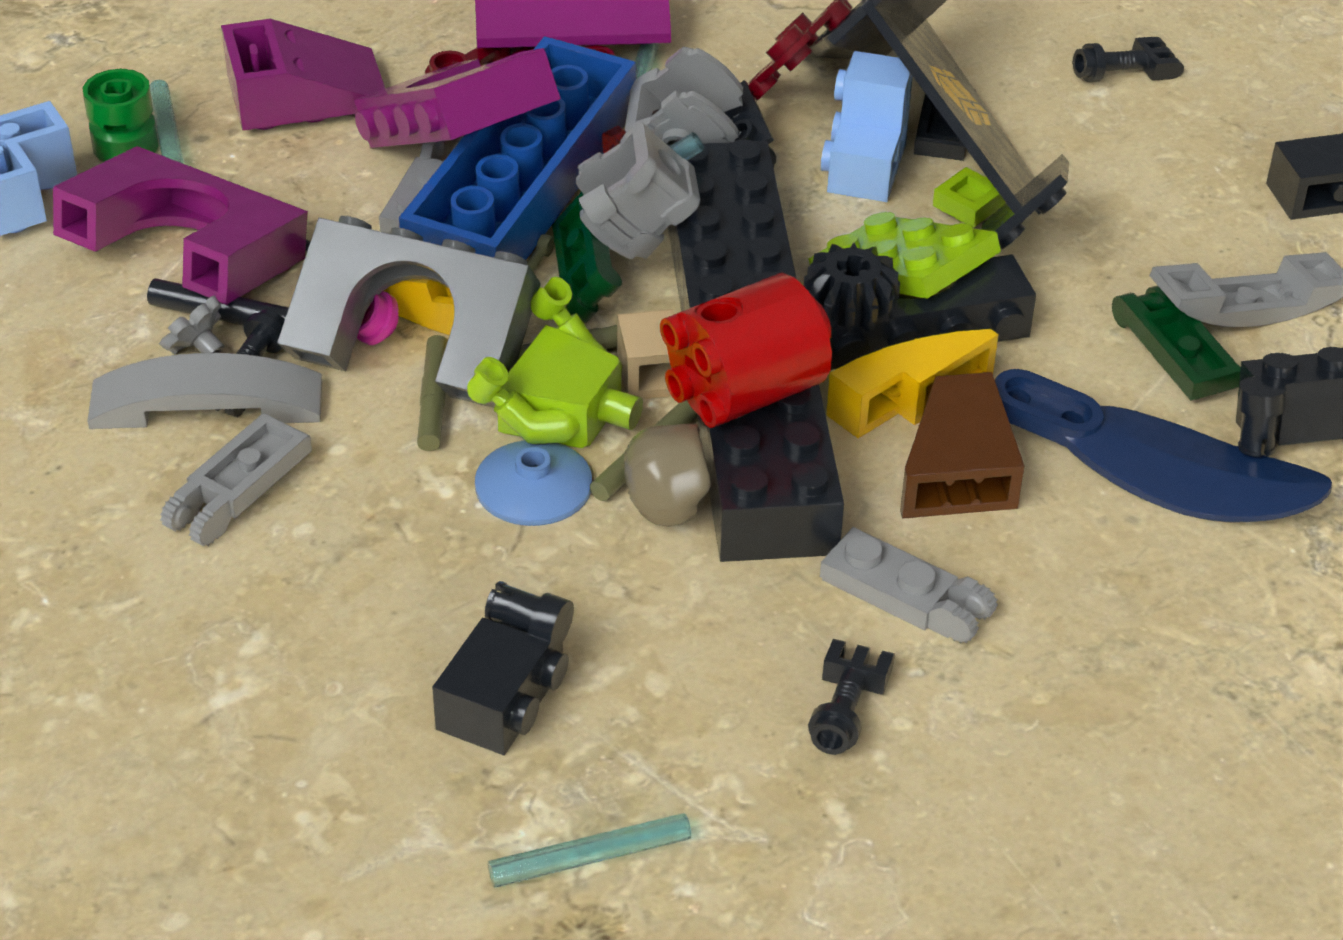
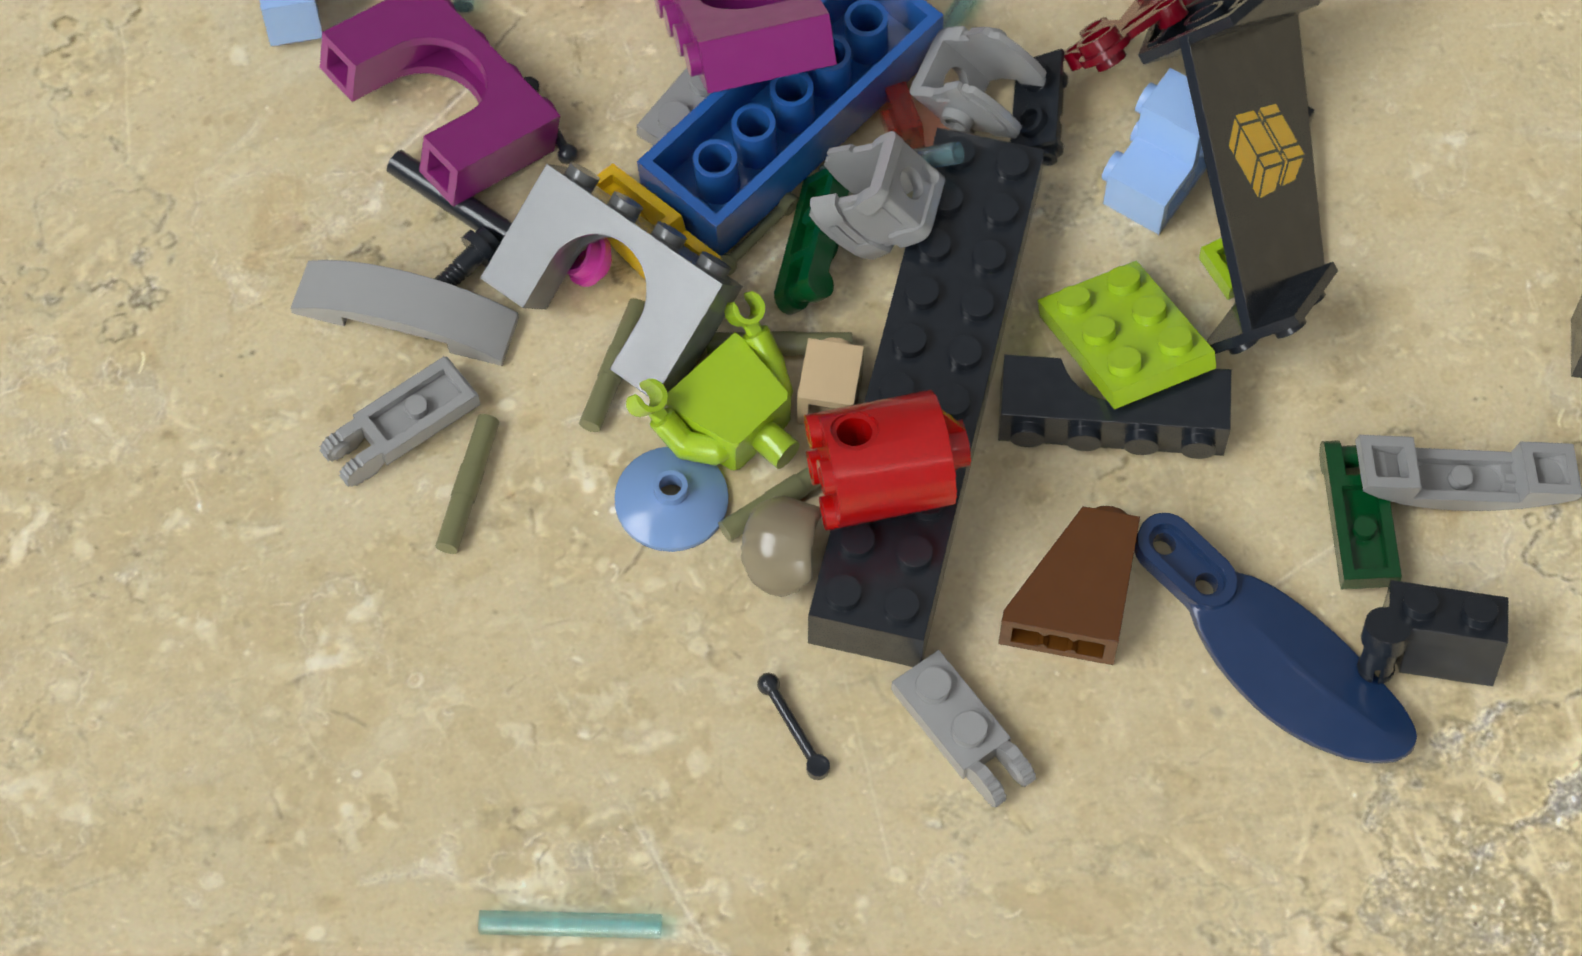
camera: 20 degrees right, 20 degrees up
(195, 330) = (418, 231): light grey plant -> none
(324, 515) = (467, 484): none -> olive piece
(504, 668) = (560, 718): black hinge -> none
(778, 652) = (817, 764): none -> black hinge
(834, 724) = (826, 868): black hinge -> none
(853, 286) = (1059, 380): black gear -> none
(902, 376) = (1066, 483): yellow slope -> none
(1146, 54) = (1531, 108): black hinge -> none

